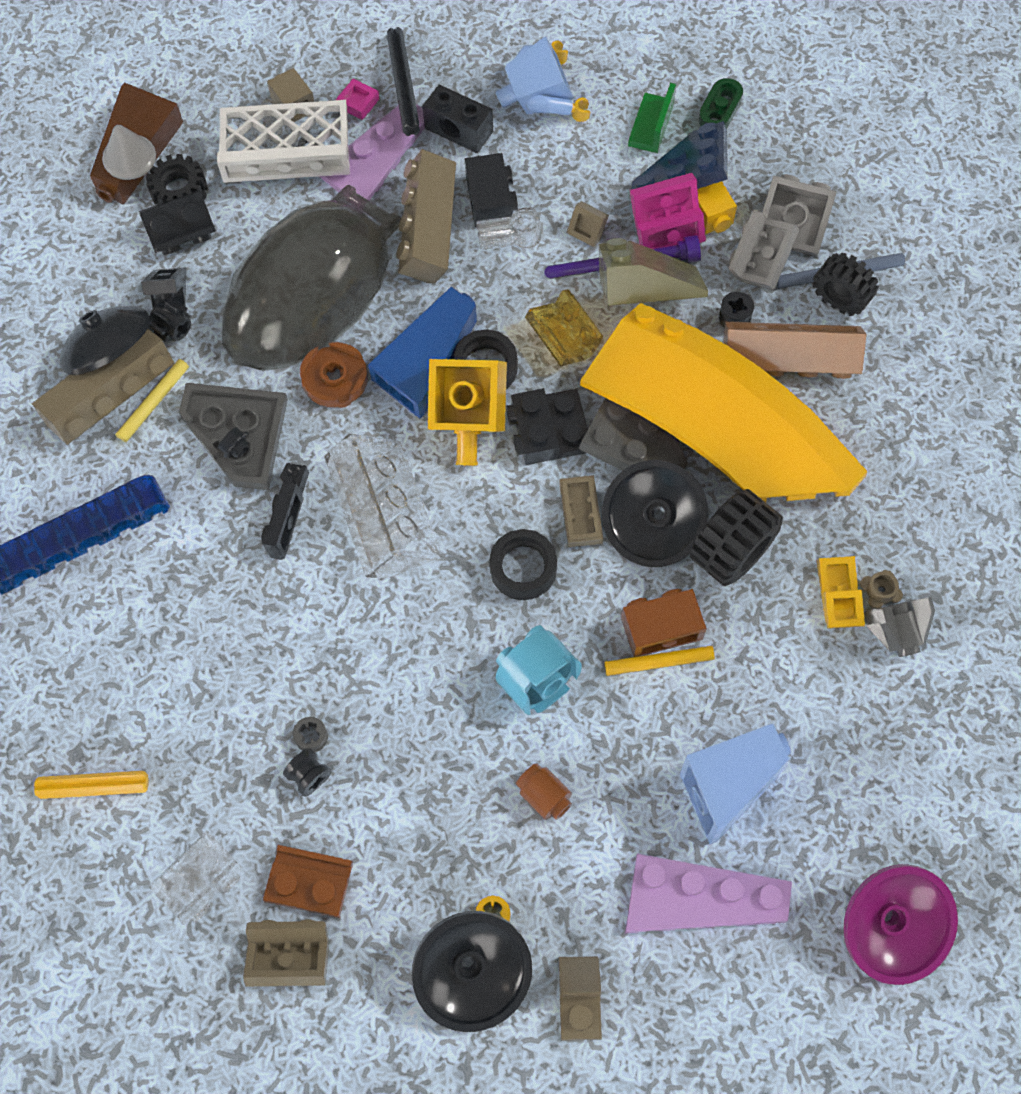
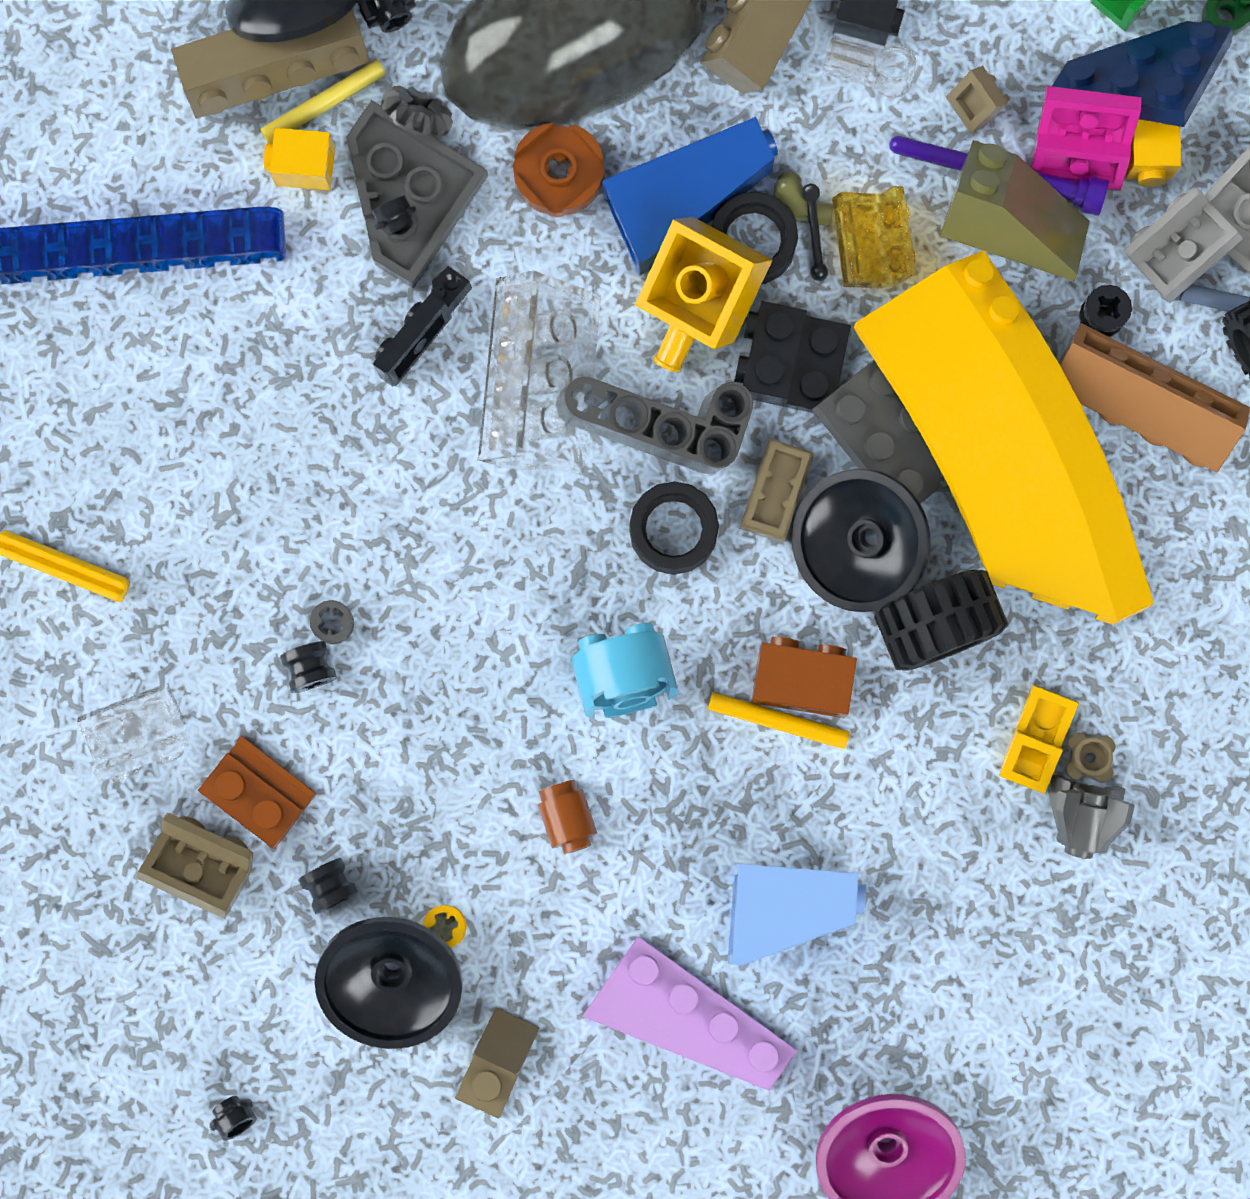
camera: 25 degrees right, 15 degrees up
(152, 439) = (300, 159): none -> yellow brick
(221, 376) = (416, 112): none -> dark grey gear
(392, 923) = (328, 885): none -> black wheel
(422, 499) = (651, 414): none -> dark grey beam
(510, 320) = (810, 194): none -> black hinge
(513, 332) = (788, 191): none -> olive arm

